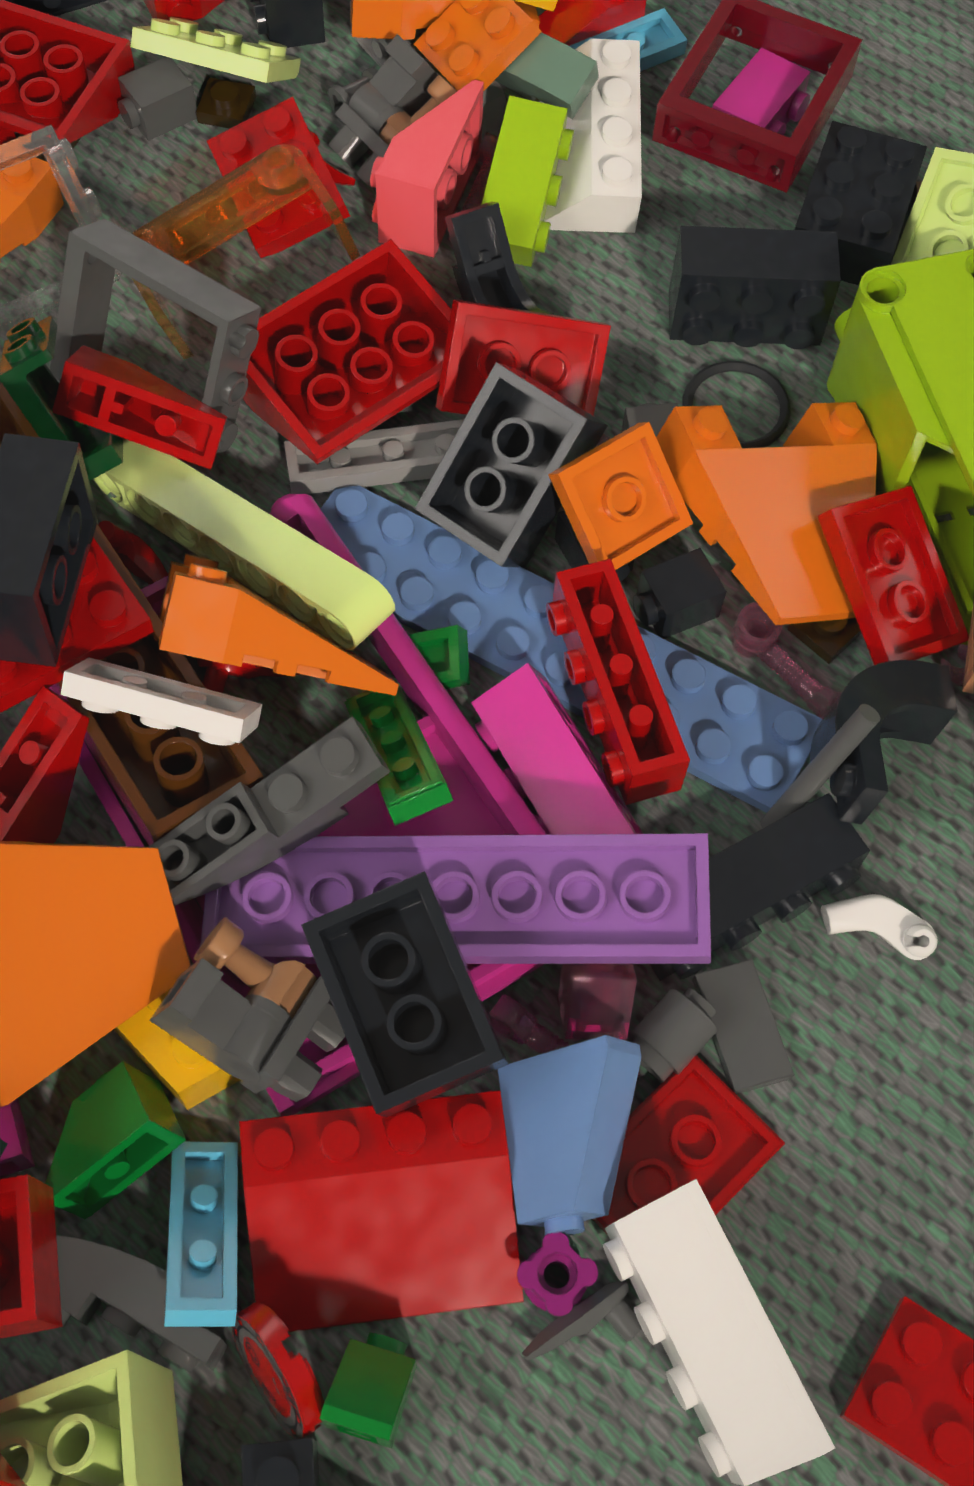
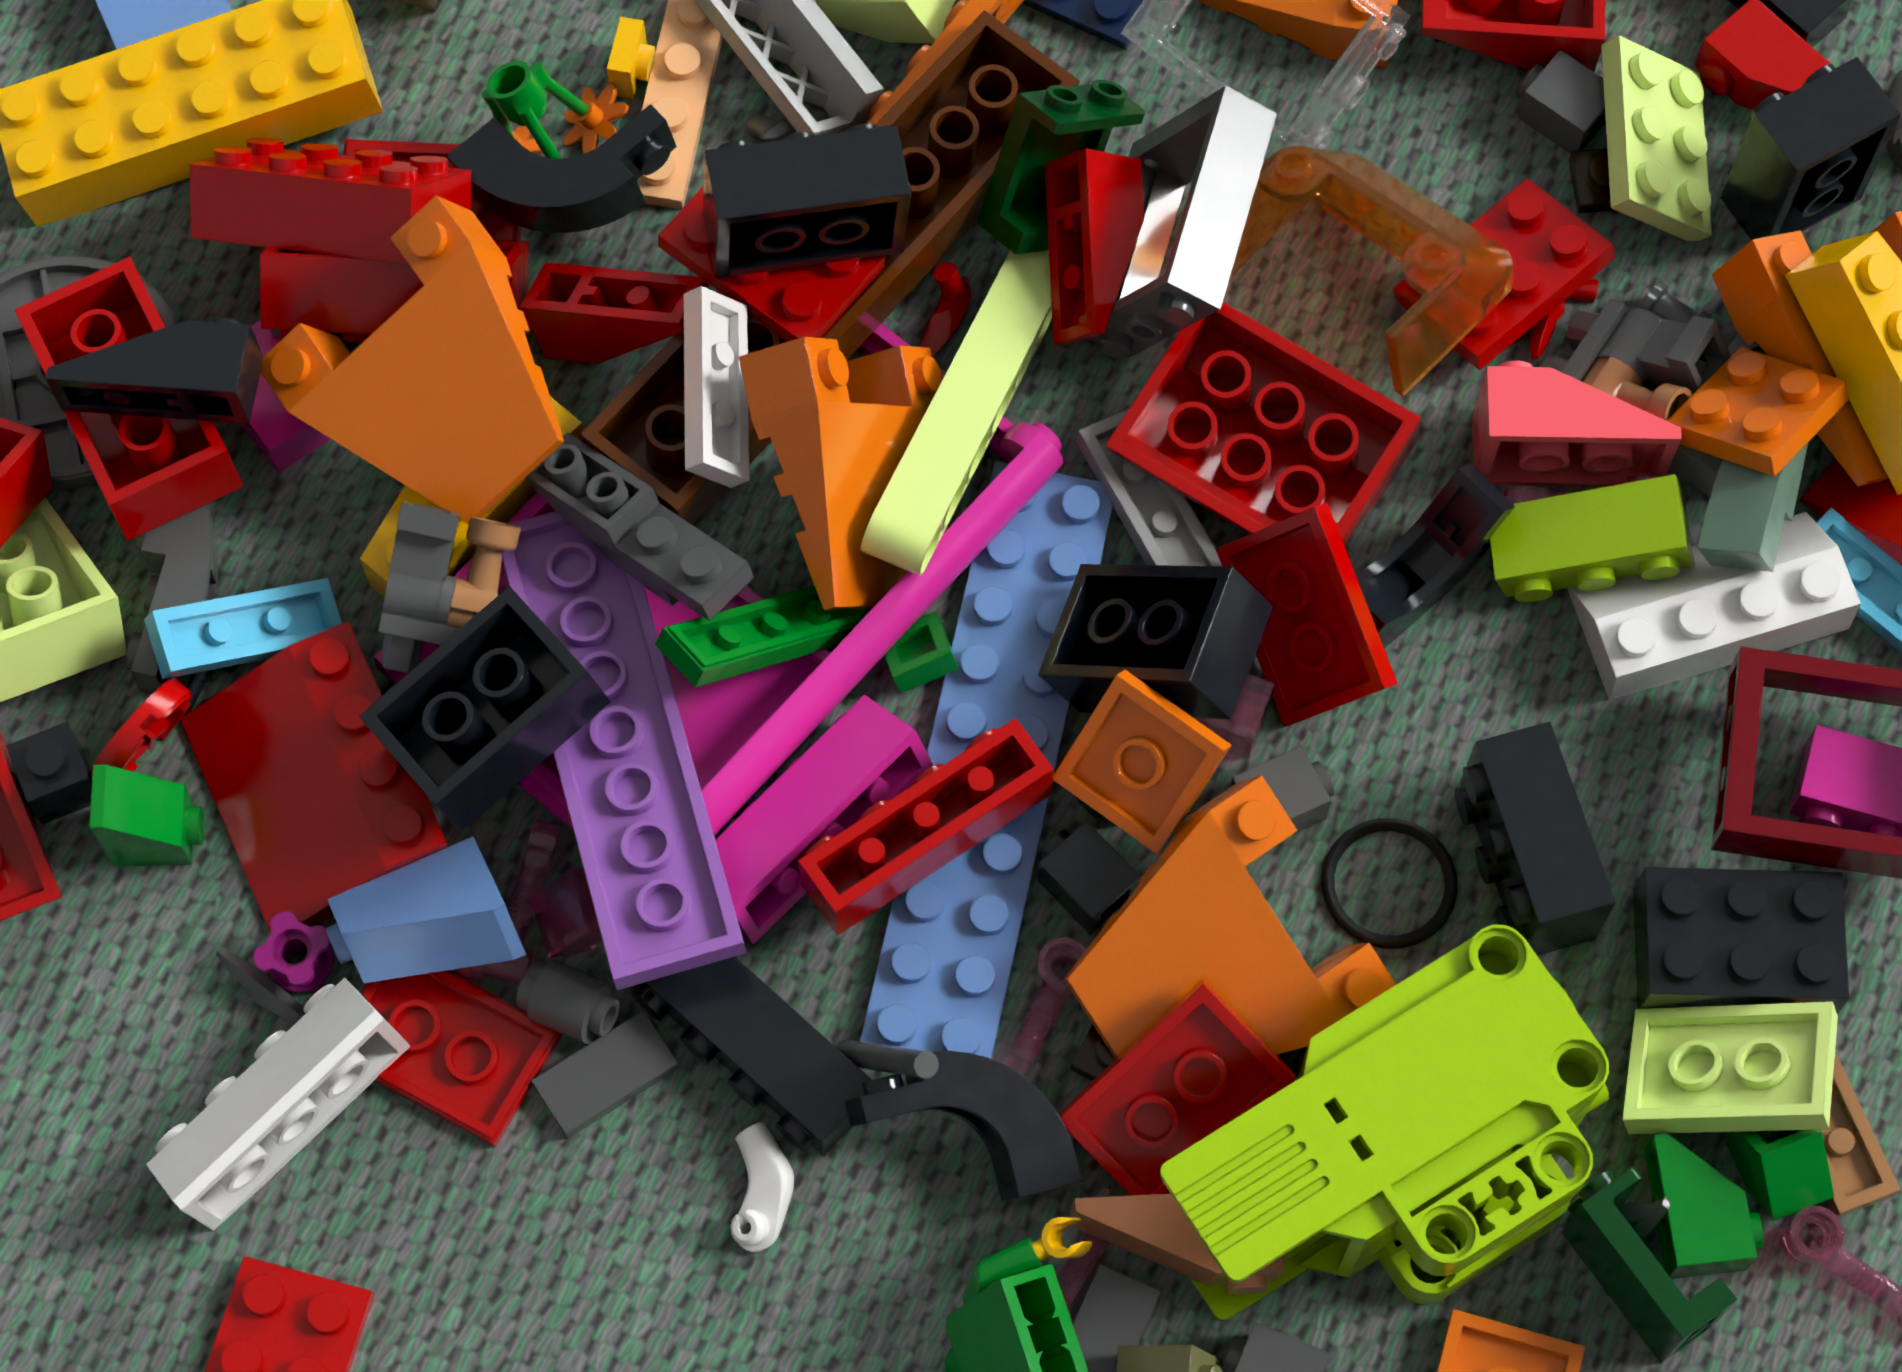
camera: 75 degrees right, 5 degrees up
(111, 1139) = (310, 522): green slope -> none

